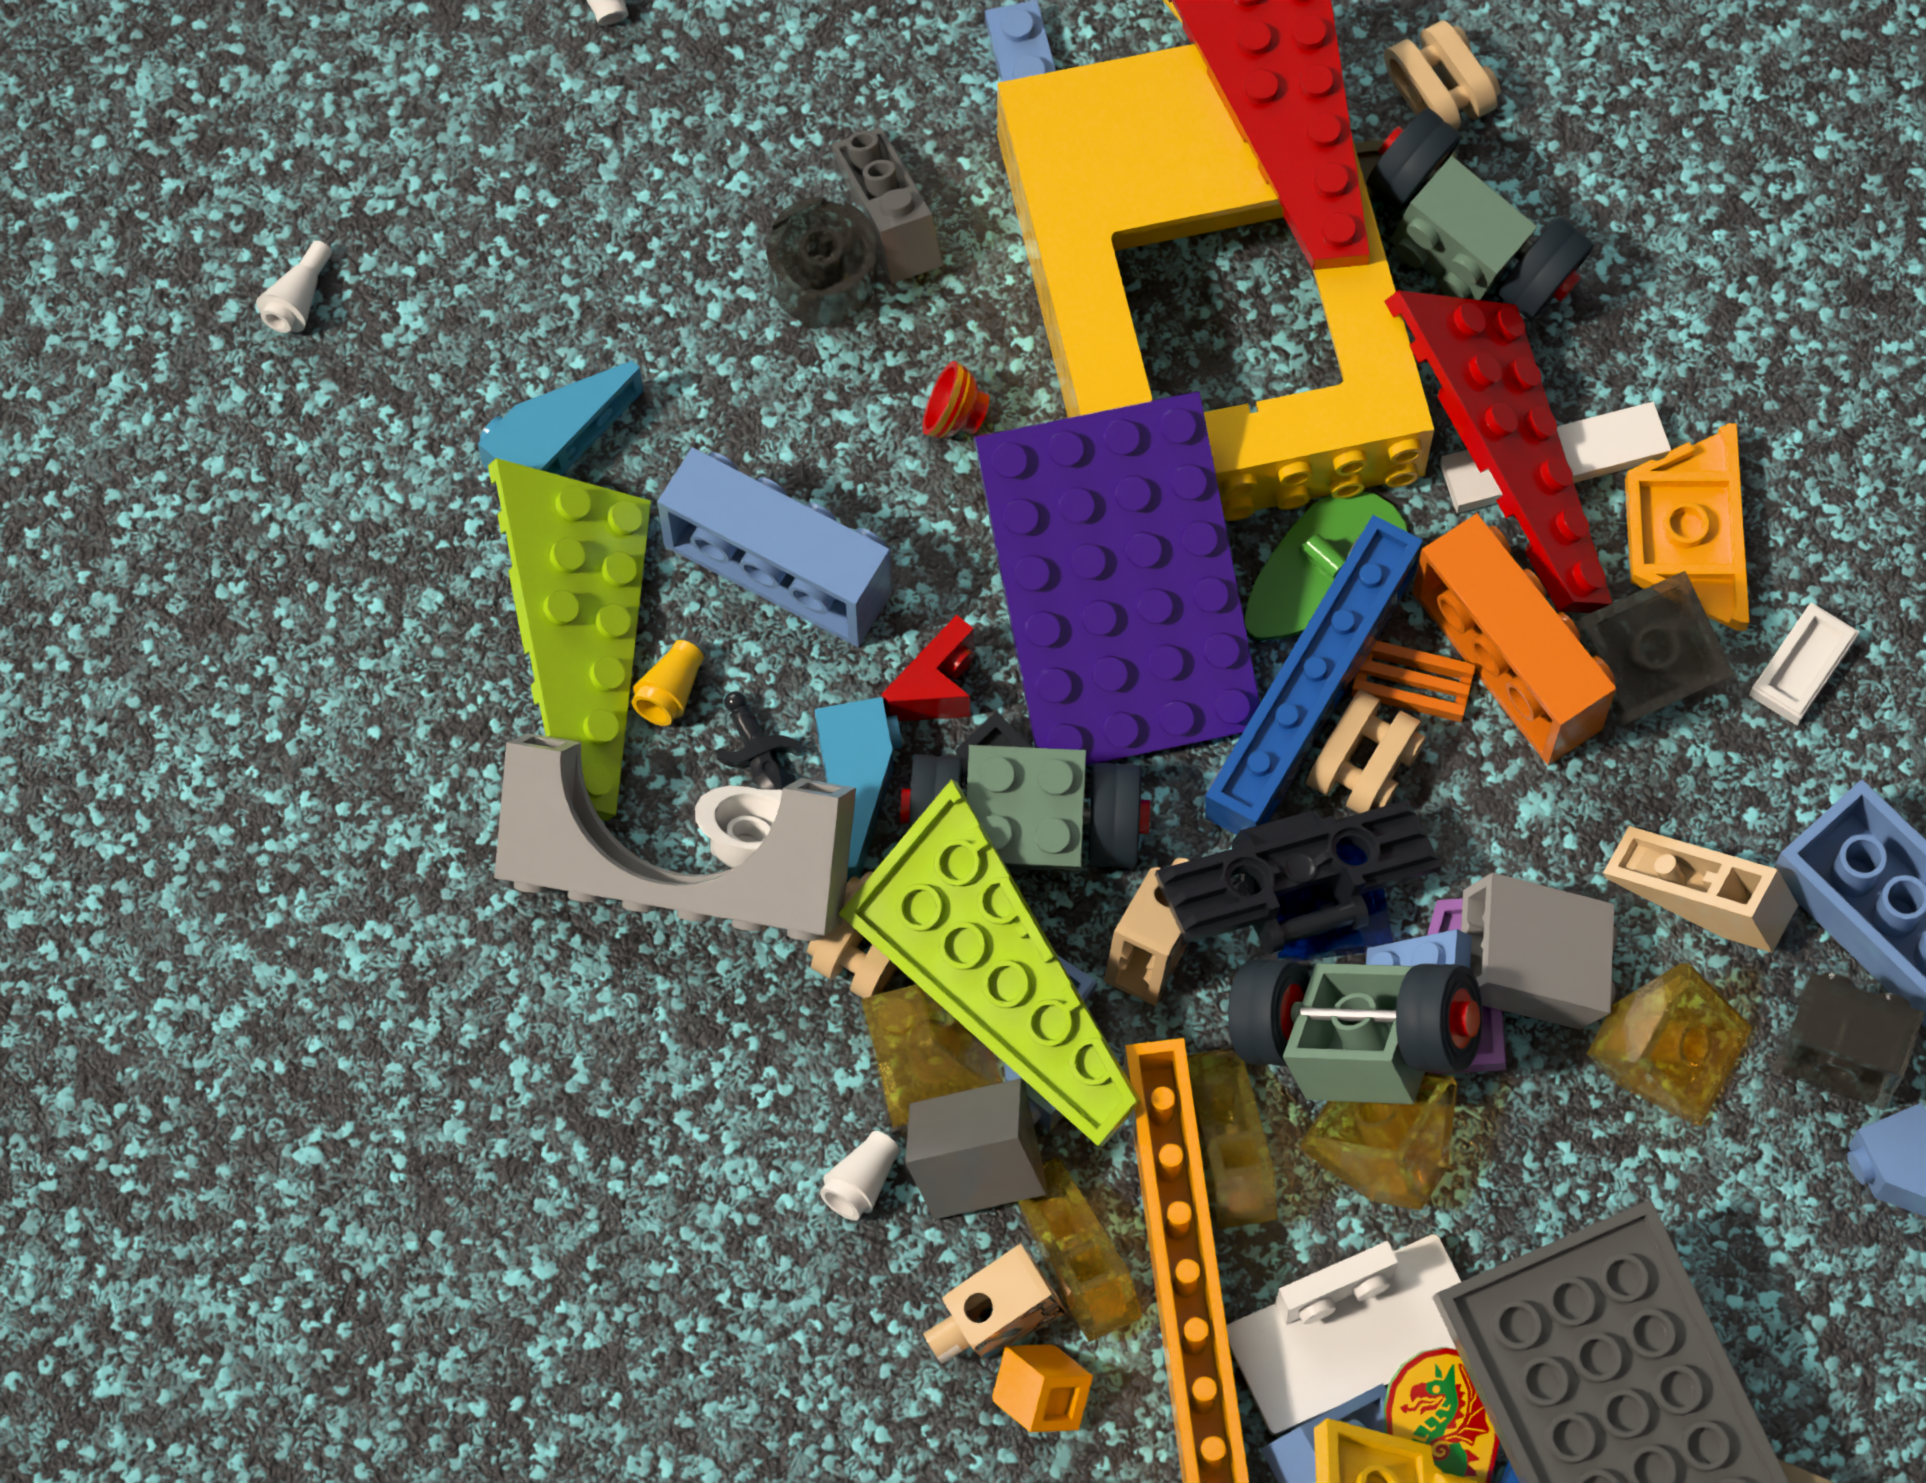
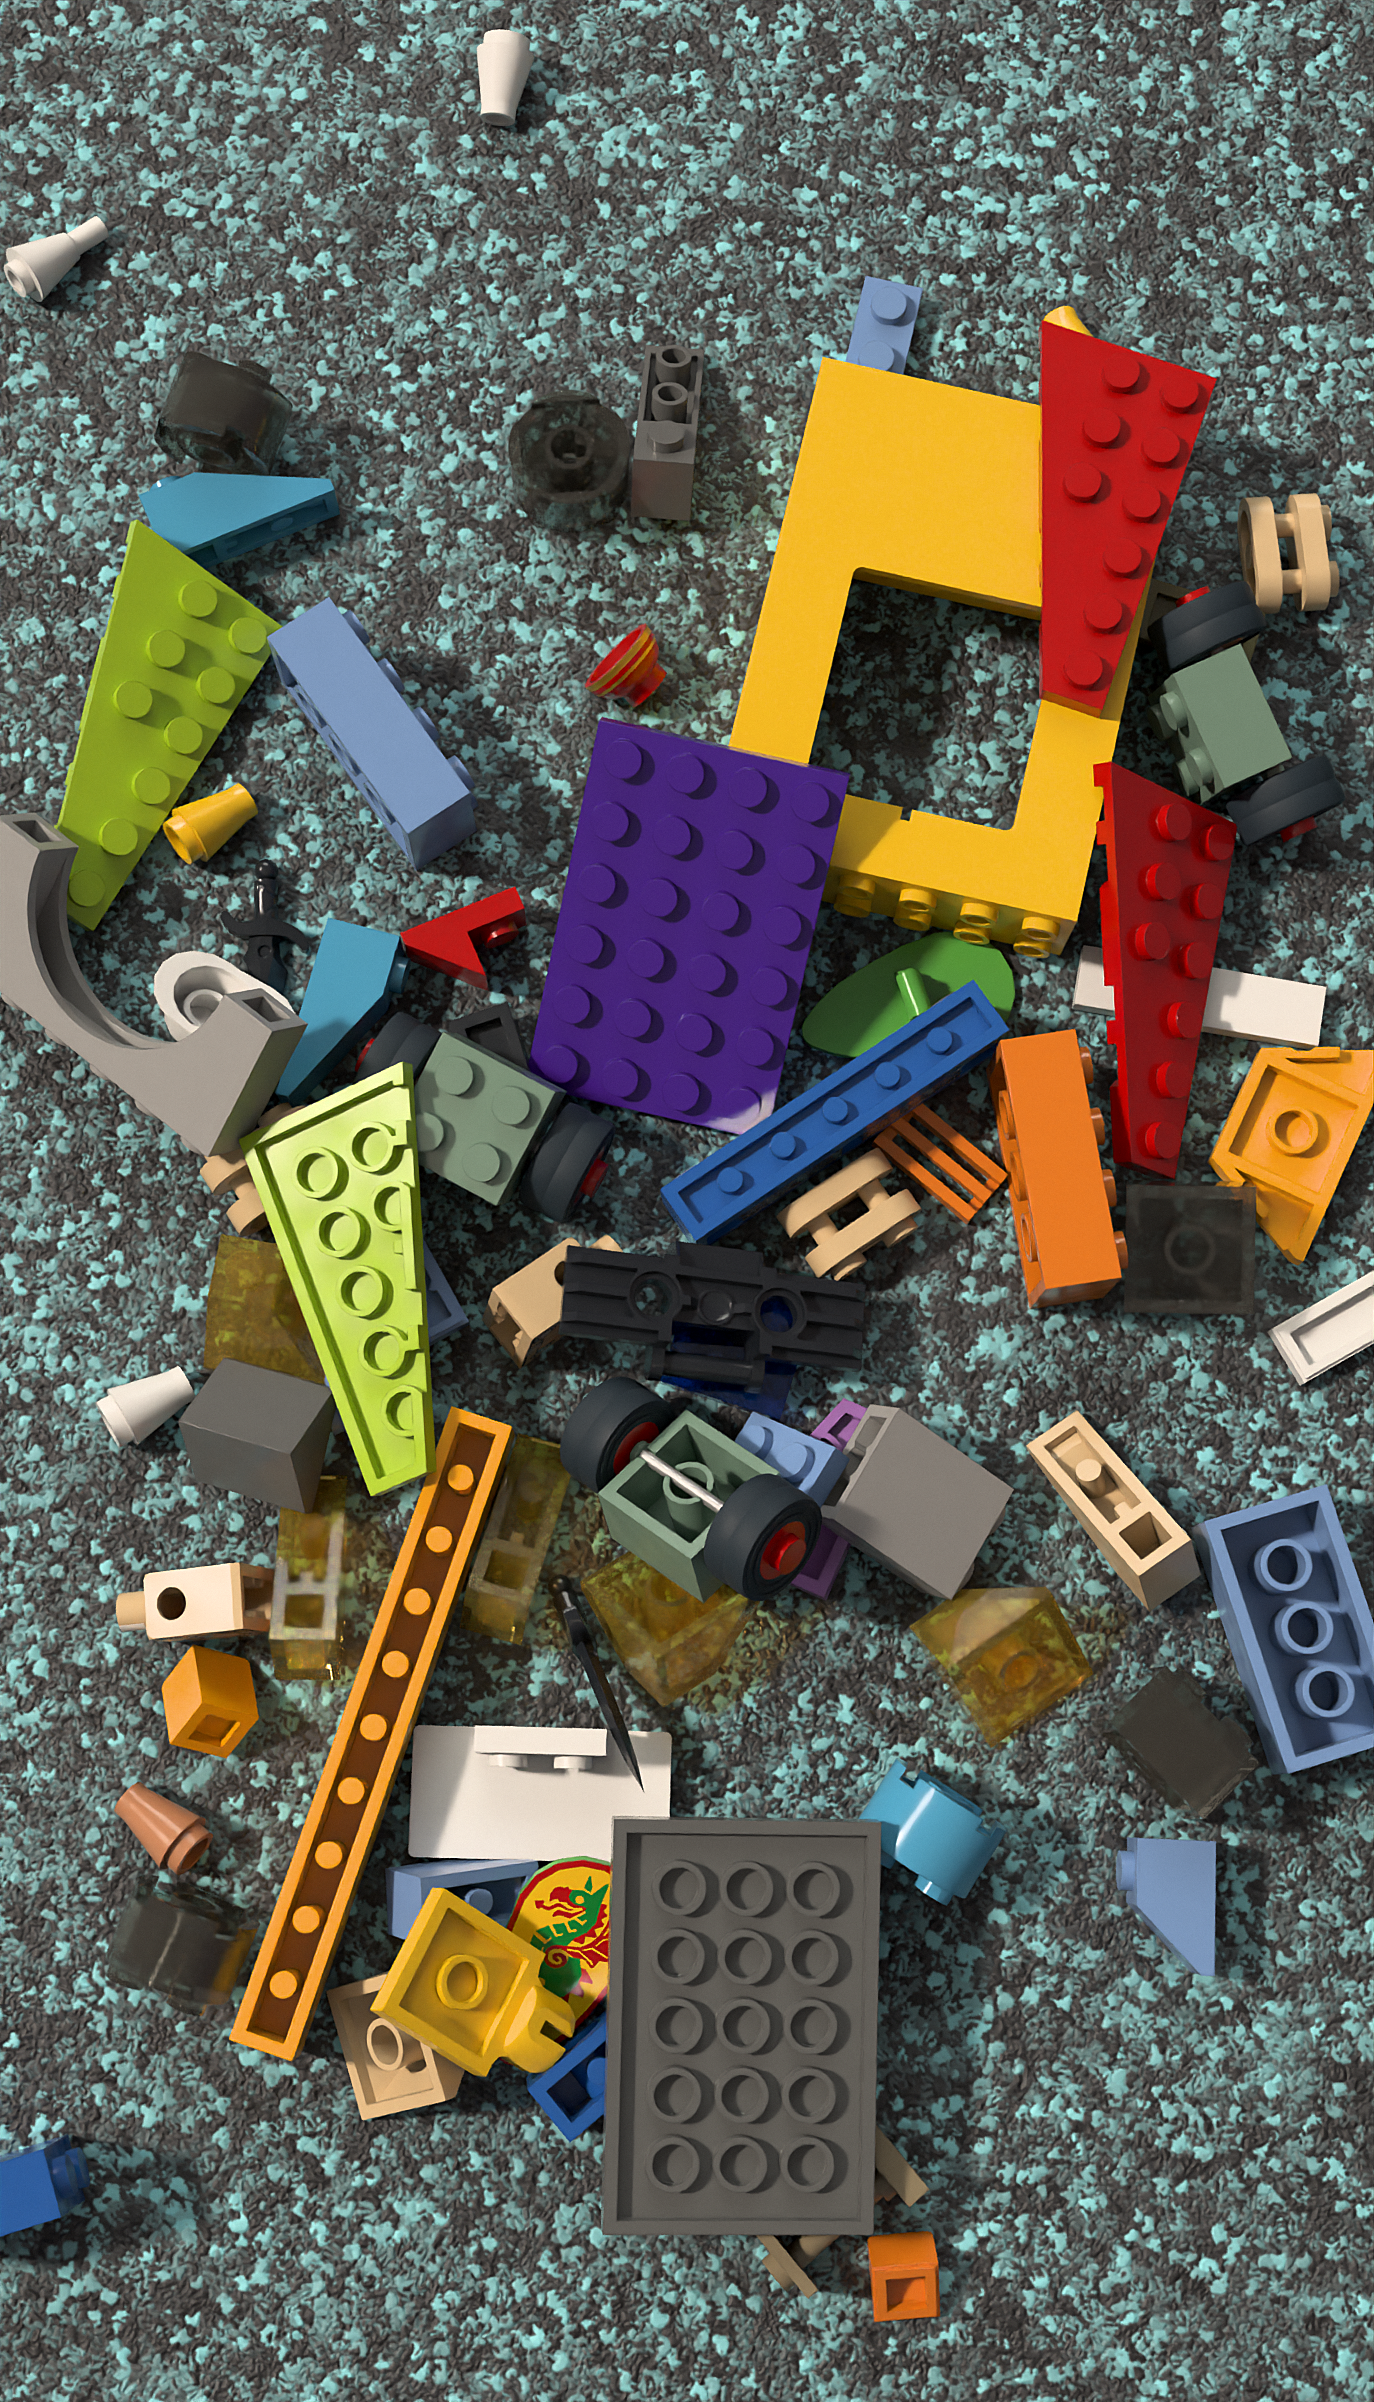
camera: 20 degrees right, 10 degrees up
(516, 349) = (223, 416): none -> clear smoke brick
(1340, 1206) = (585, 1648): none -> black piece
(1695, 1201) = (932, 1832): none -> dark azure brick

